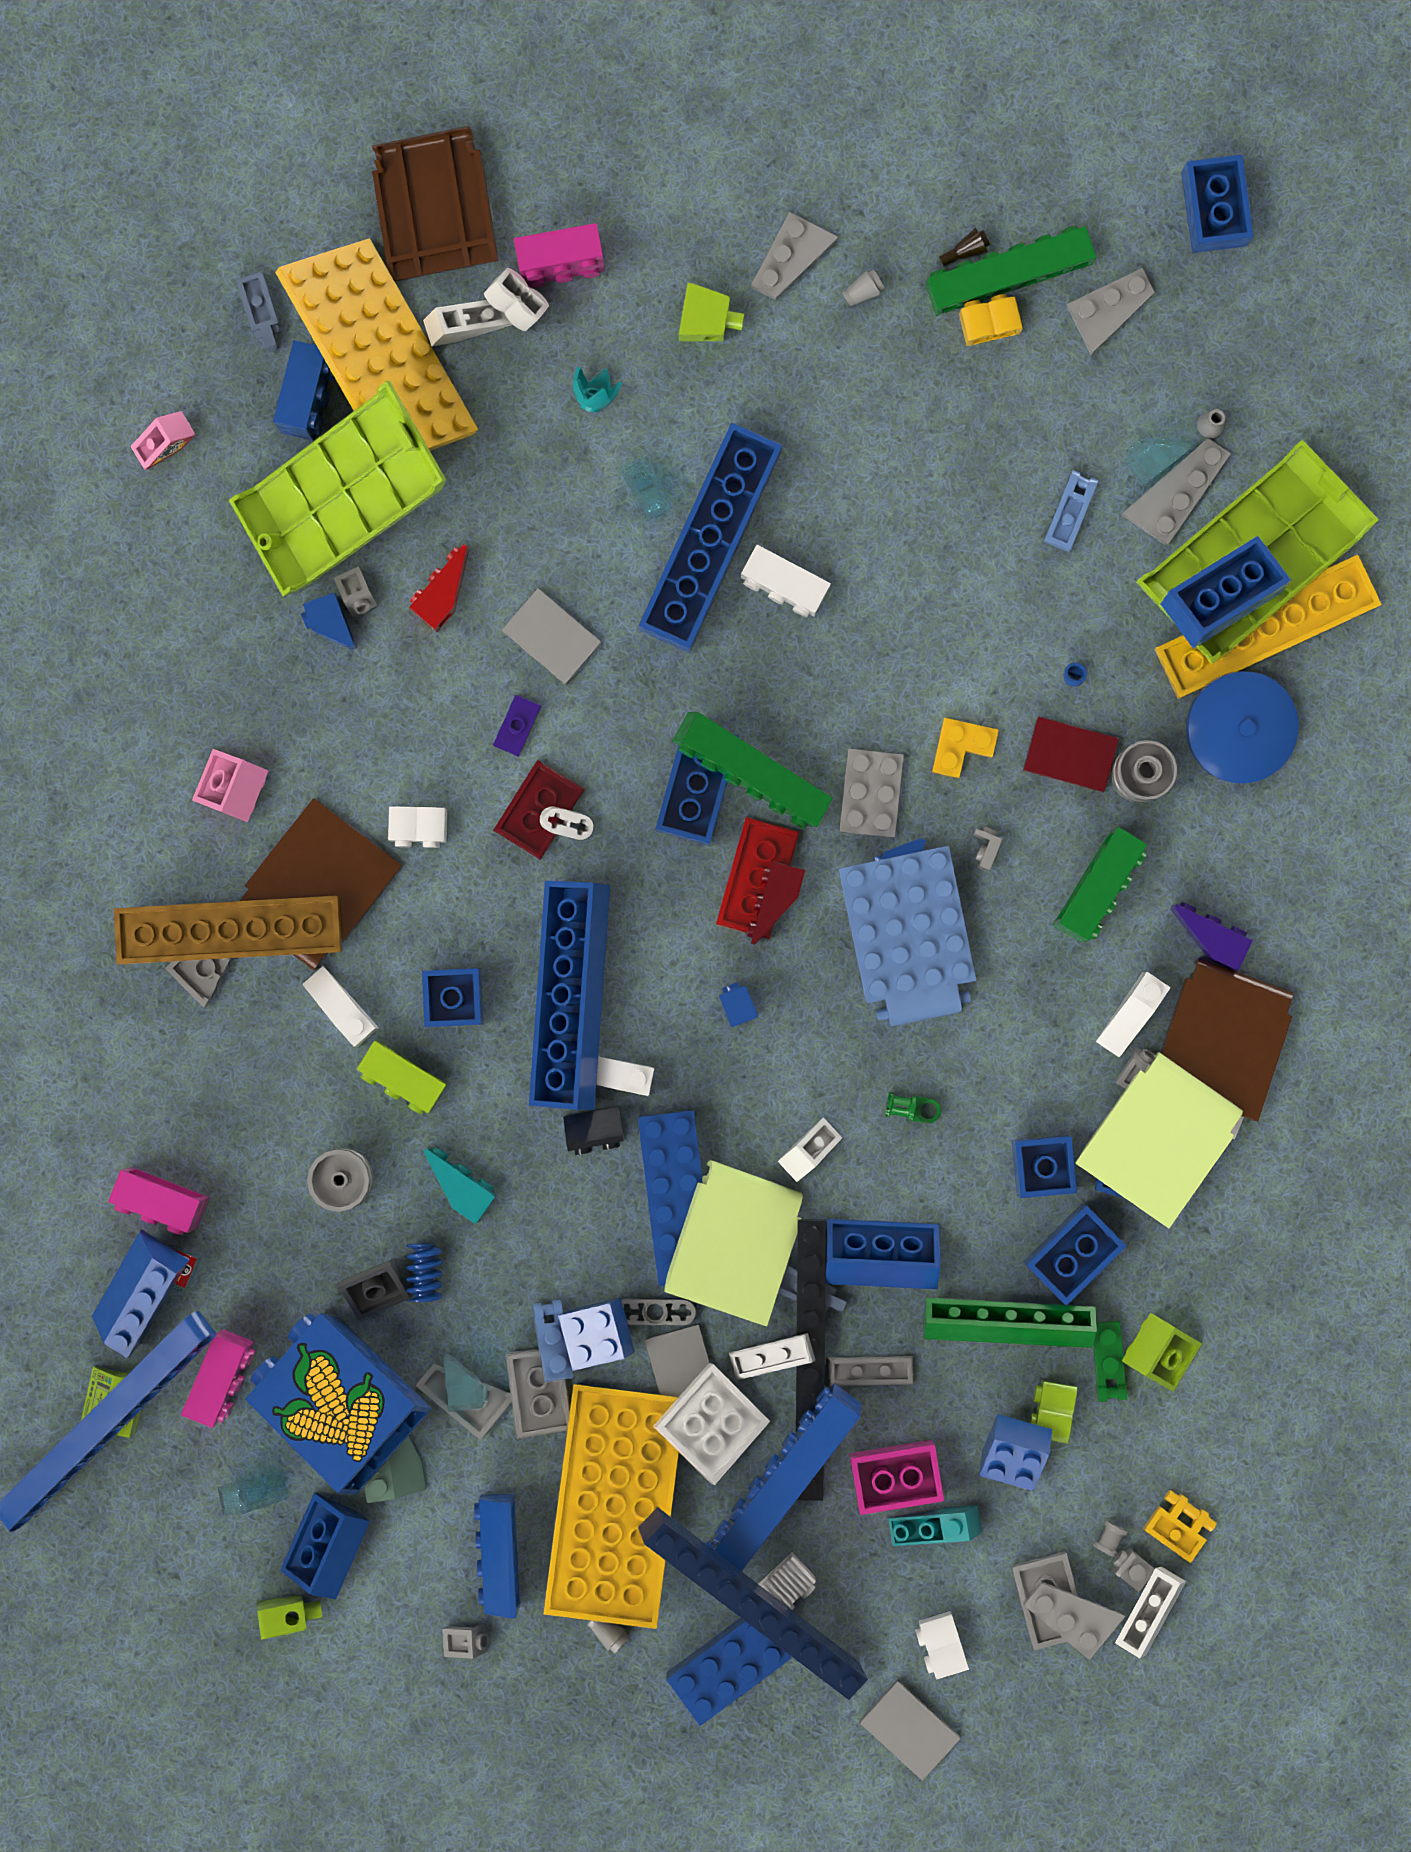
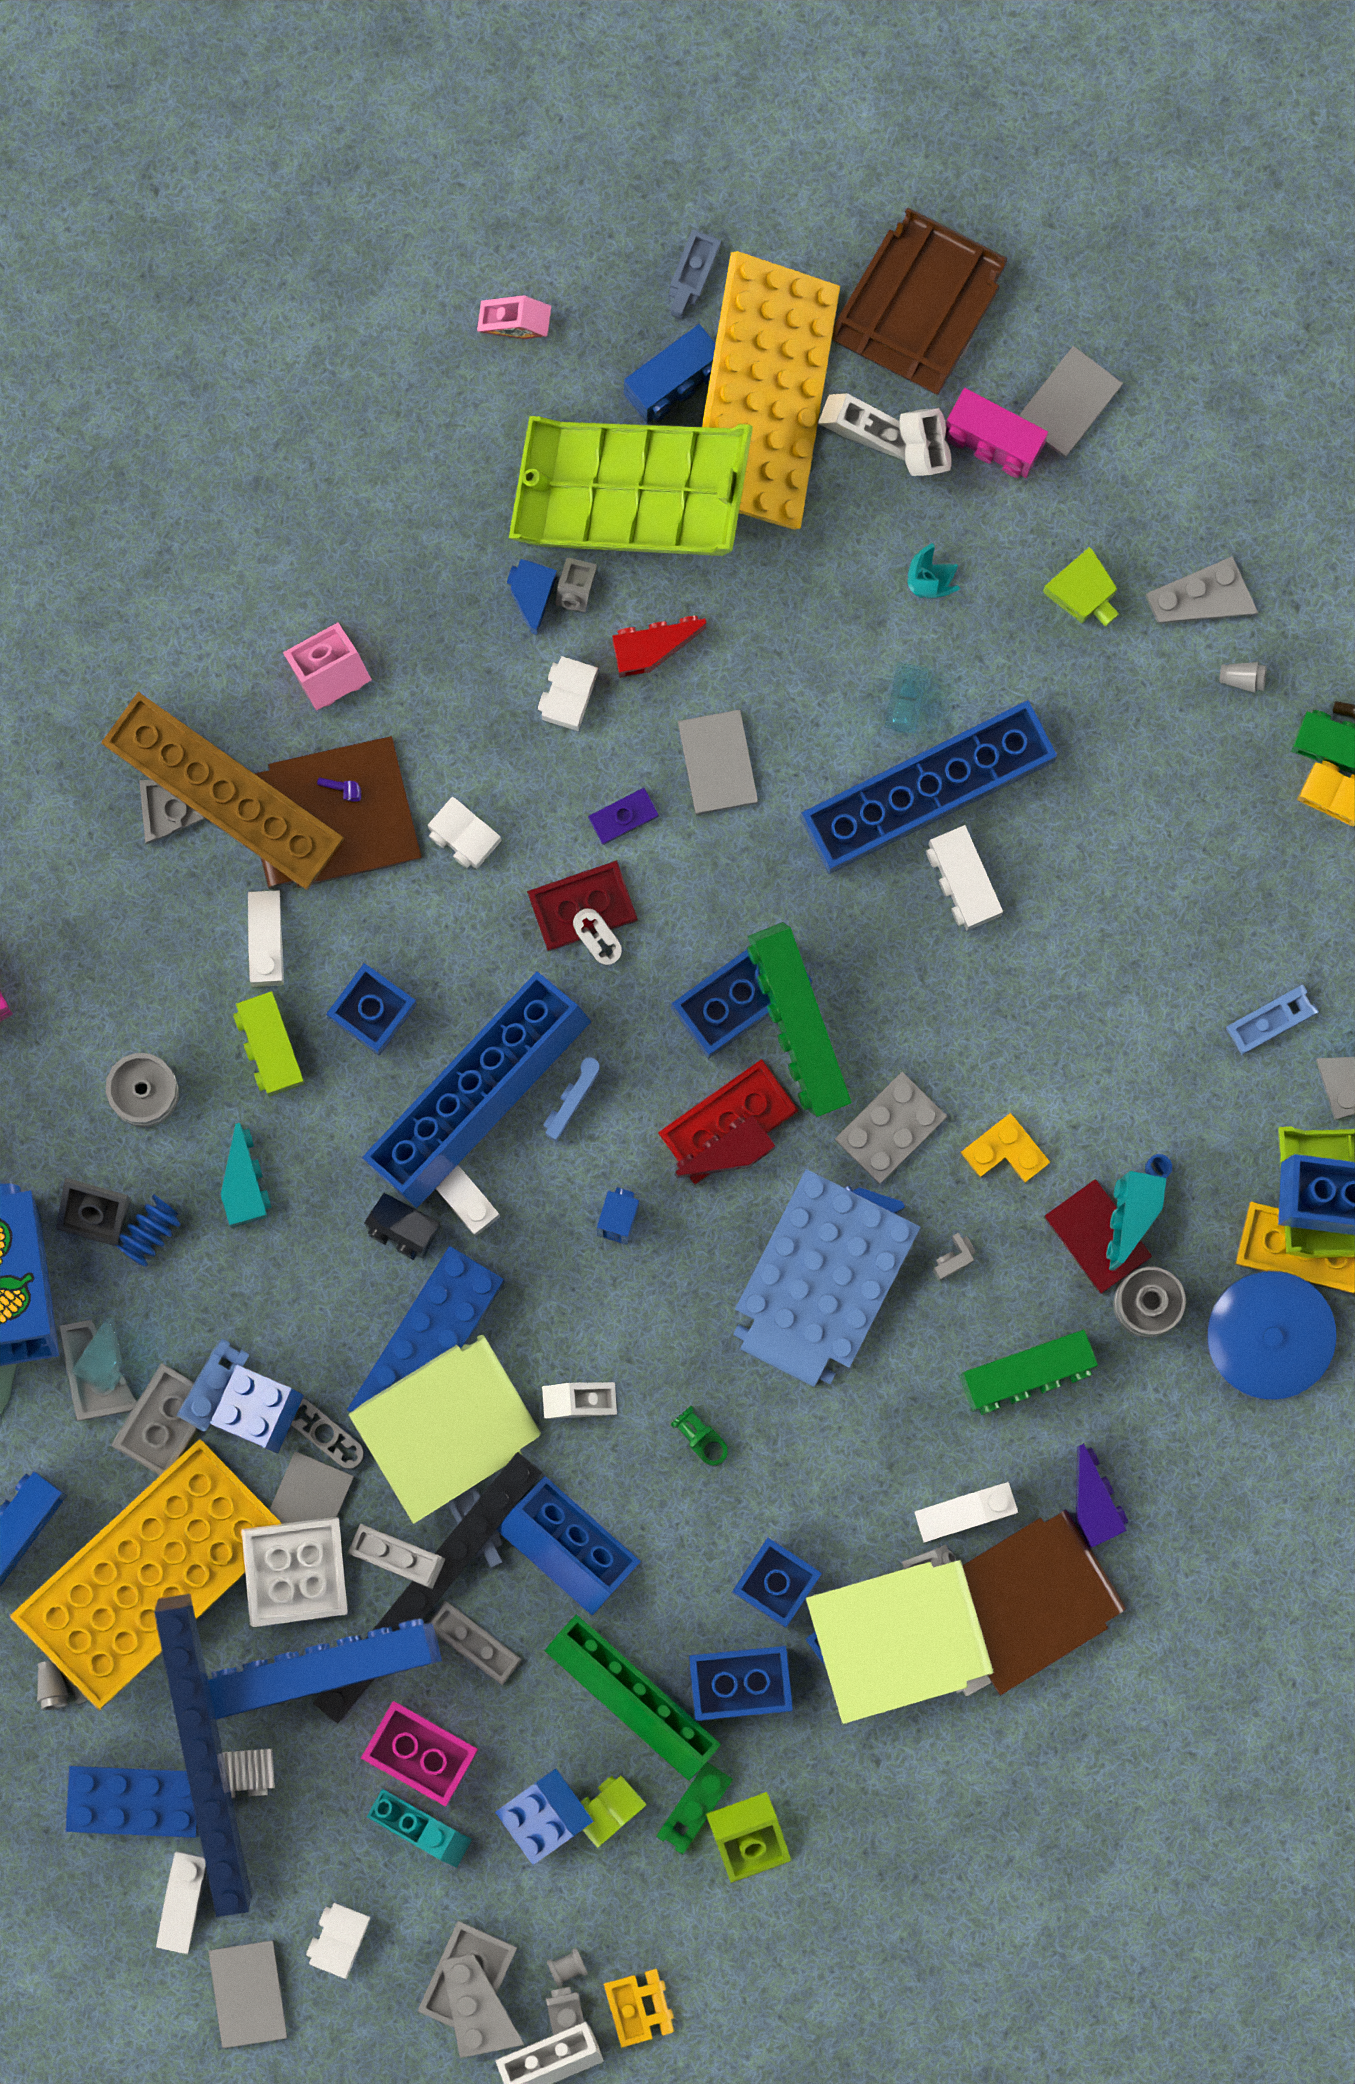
camera: 35 degrees right, 5 degrees down
(315, 857) = (350, 789): none -> dark purple hand
(411, 671) = (568, 694): none -> white brick
(592, 190) = (1071, 400): none -> light grey tile
(639, 947) = (572, 1098): none -> medium blue plate
(815, 1705) = (181, 1902): none -> white slope
(1084, 714) = (1138, 1205): none -> teal slope

